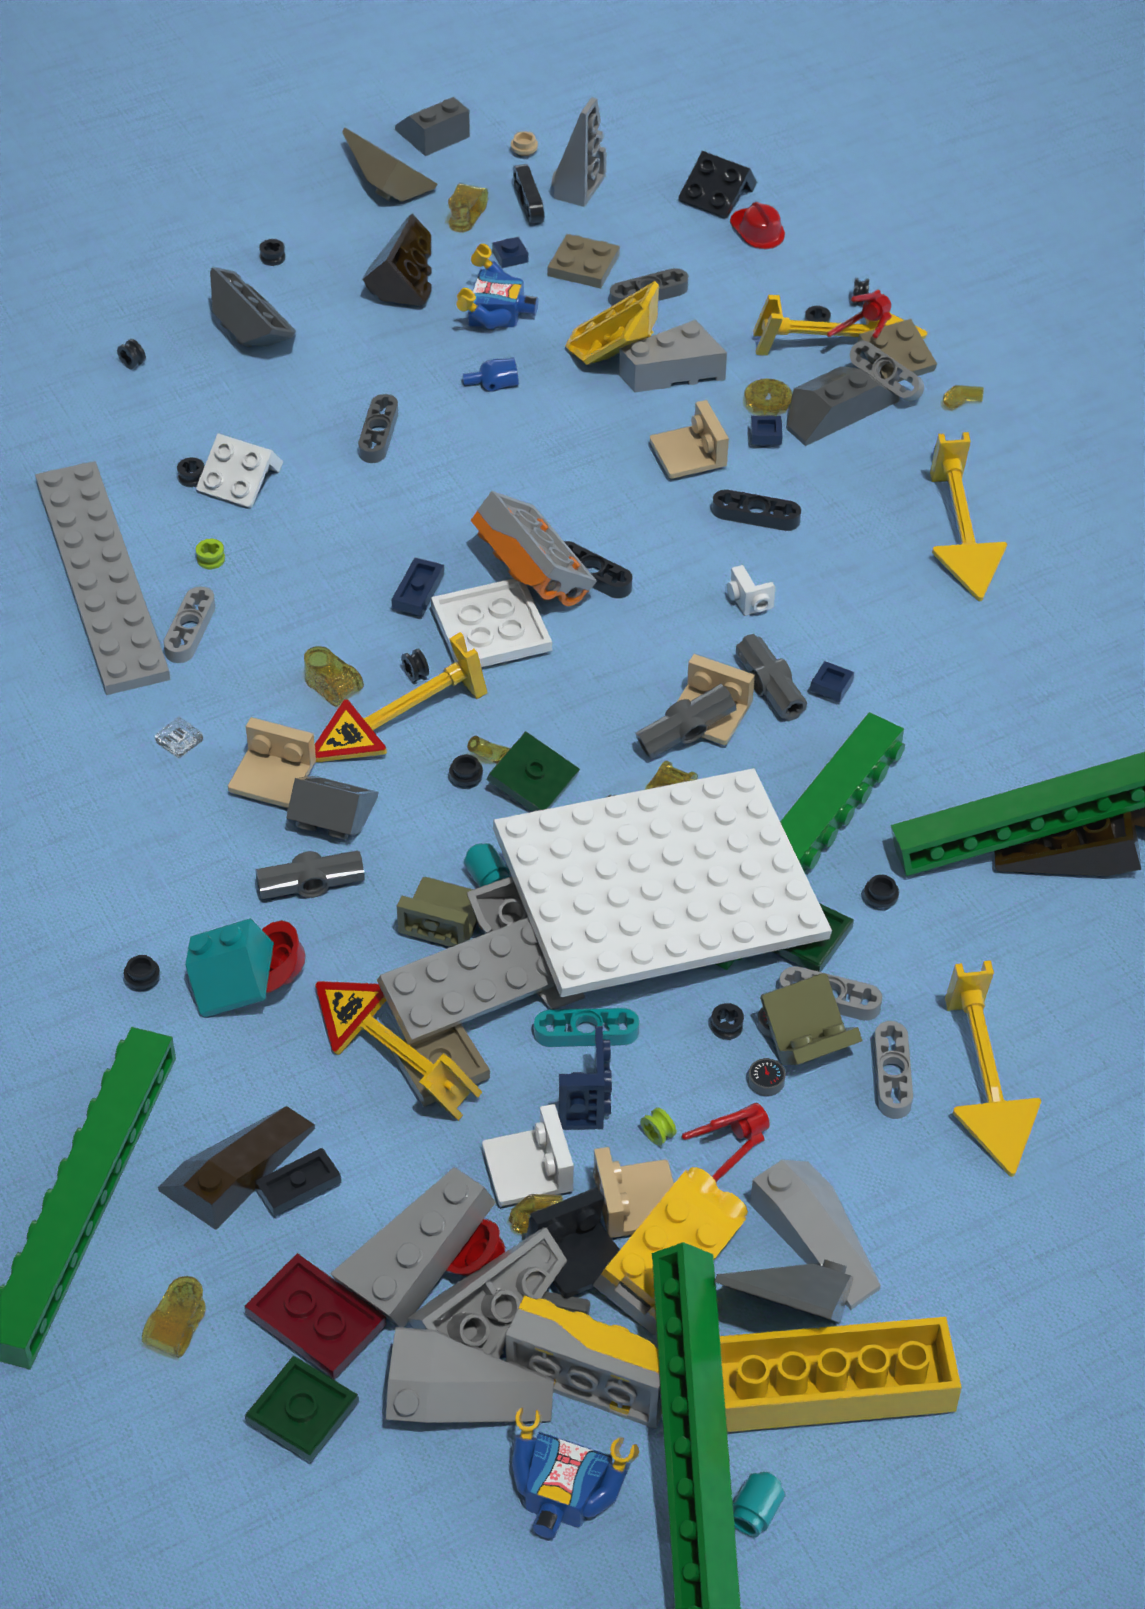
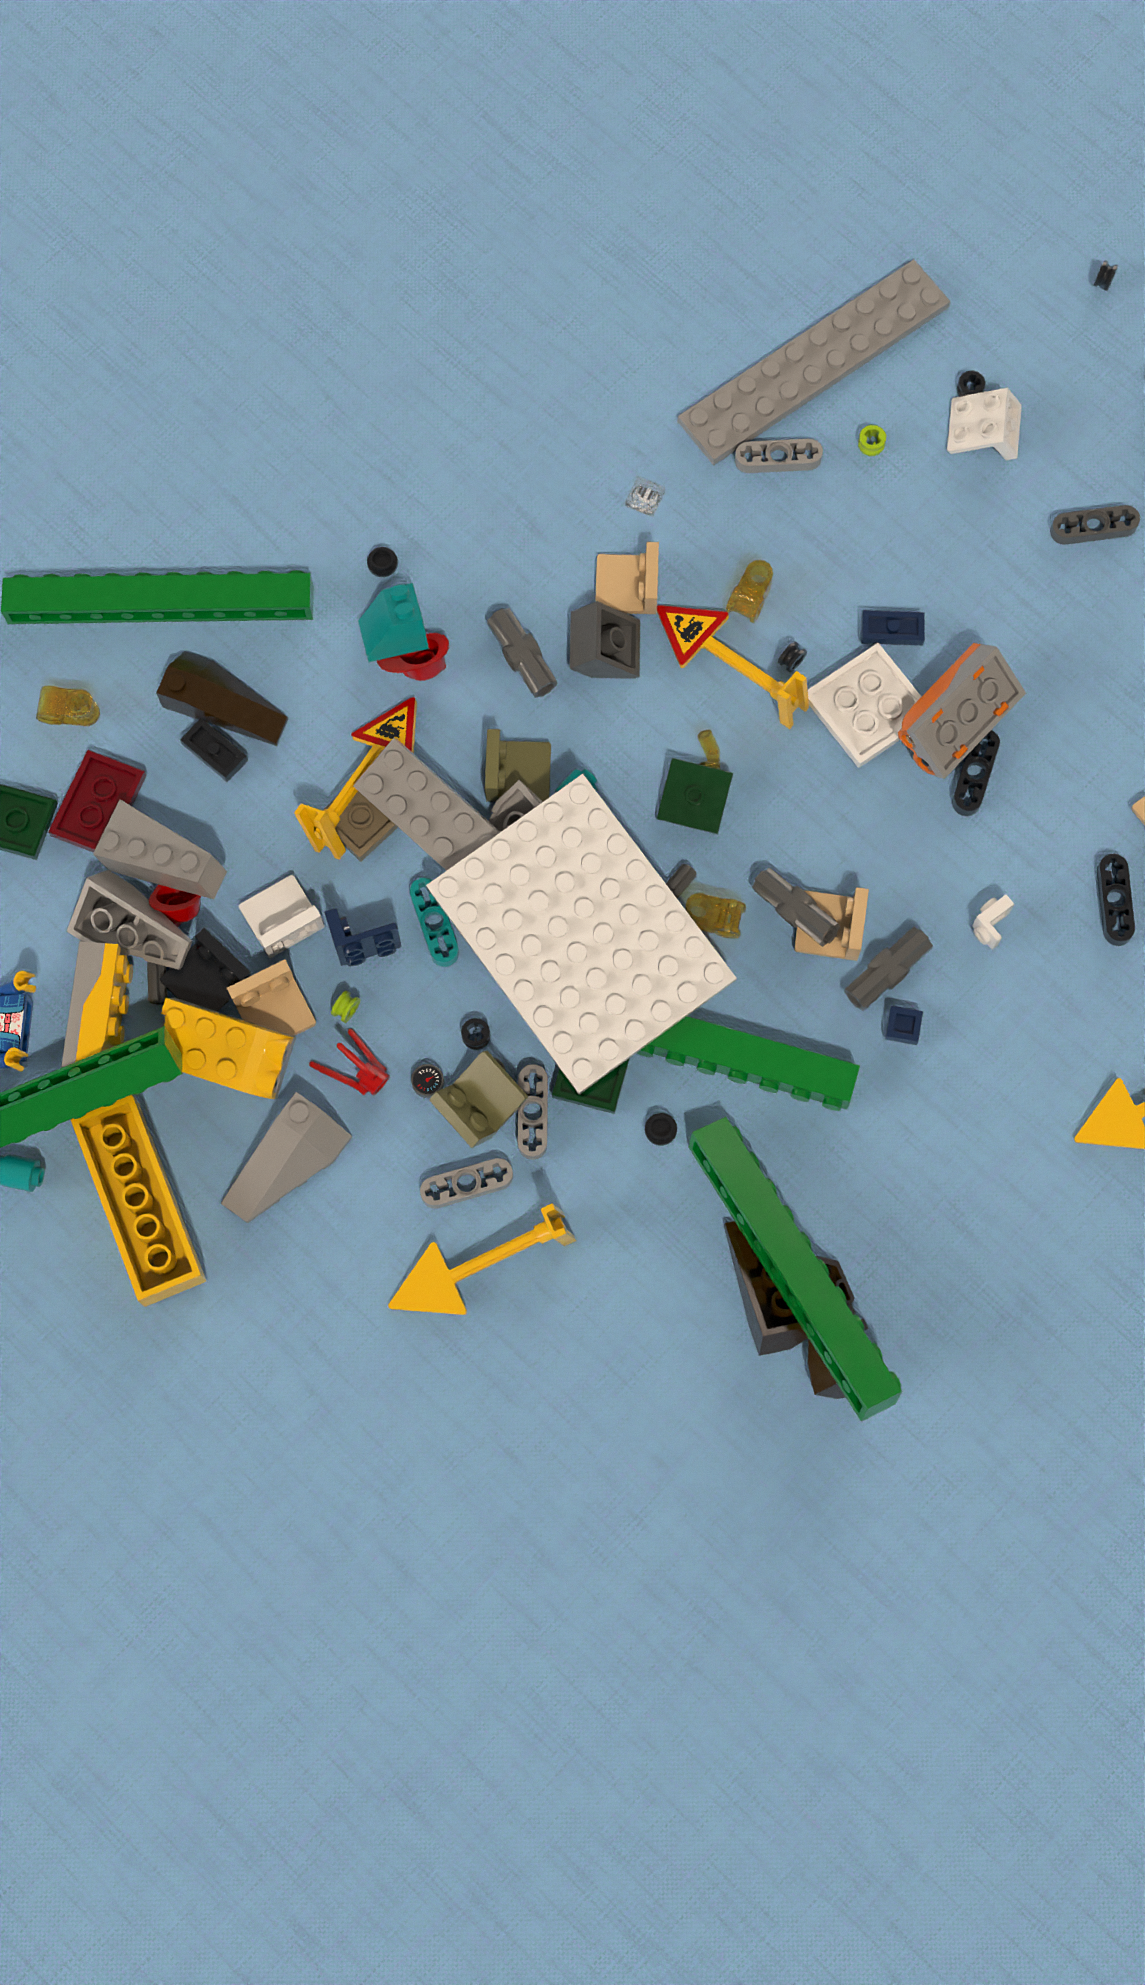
camera: 75 degrees right, 25 degrees up
(452, 1382) = (49, 912): light grey wedge -> none
(466, 770) = (683, 740): black plate -> none
(521, 1212) = (242, 933): clear yellow arm -> none
(804, 1287) = (191, 1145): dark grey slope -> none

